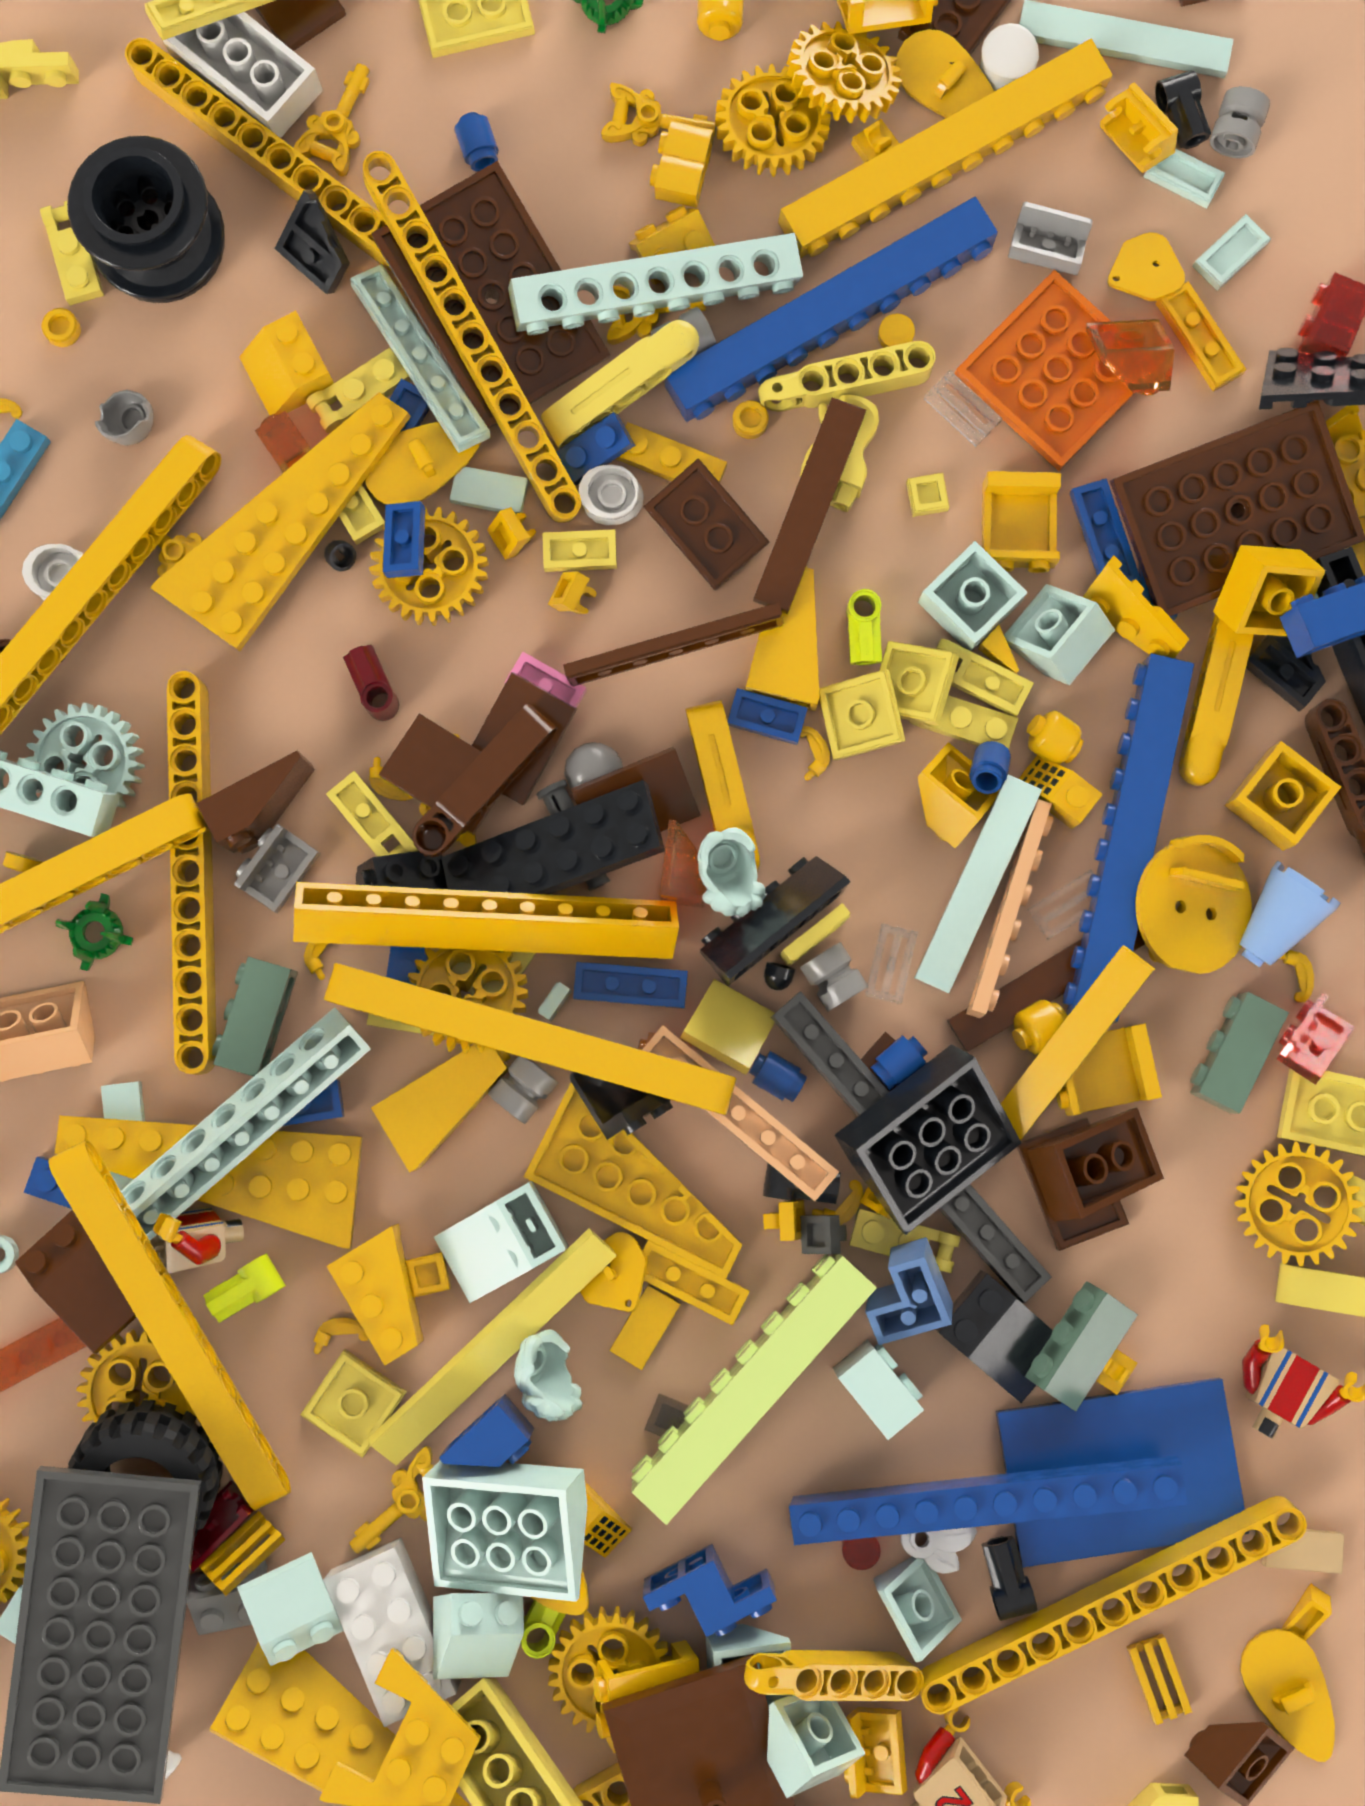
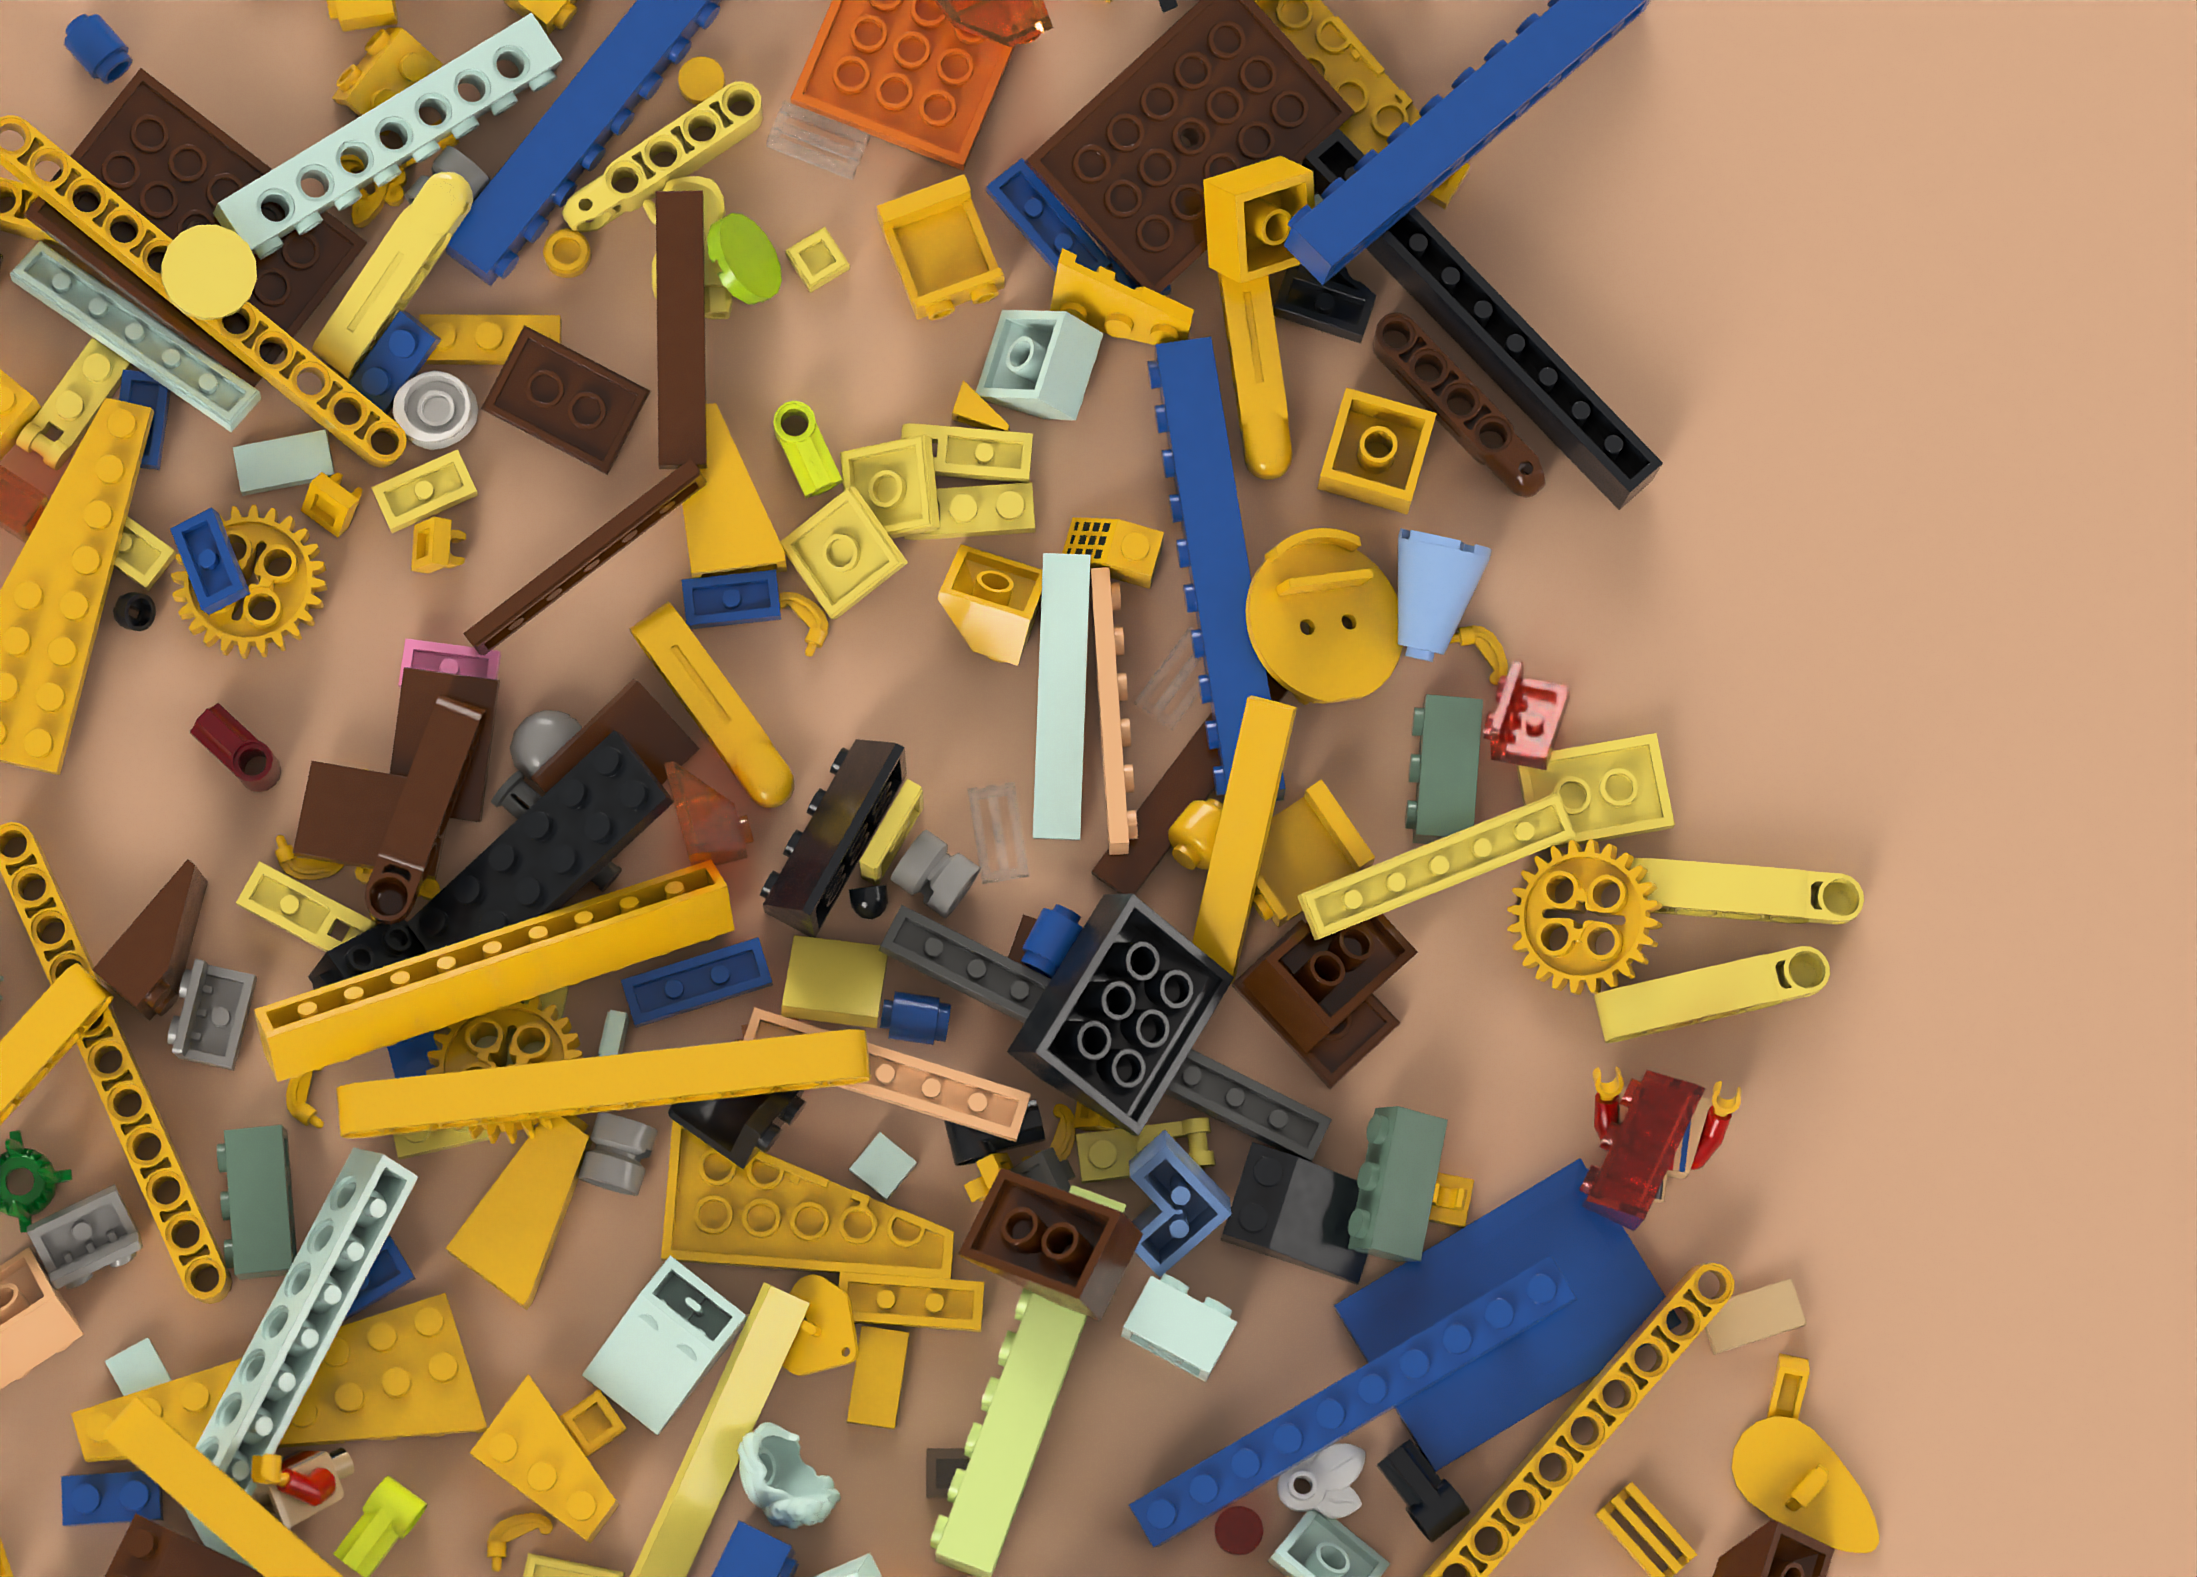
camera: 30 degrees left, 5 degrees down
(122, 993) = (86, 1238): none -> light grey bracket
(416, 465) = (184, 467): yellow shield -> none
(484, 326) = (208, 272): none -> light yellow tile
(710, 1173) = (883, 1166): none -> light aqua tile
(730, 872) = (761, 797): light aqua hair -> none
(810, 1297) = (1052, 1242): none -> reddish brown slope
(877, 472) = (746, 258): none -> lime tile
(972, 596) = (918, 361): light aqua brick -> none
(990, 767) = (1019, 553): blue brick -> none
(1054, 737) = (1083, 488): yellow head -> none
(1206, 1124) = (1436, 866): none -> light yellow tile
(1280, 1404) = (1640, 1147): none -> clear red slope

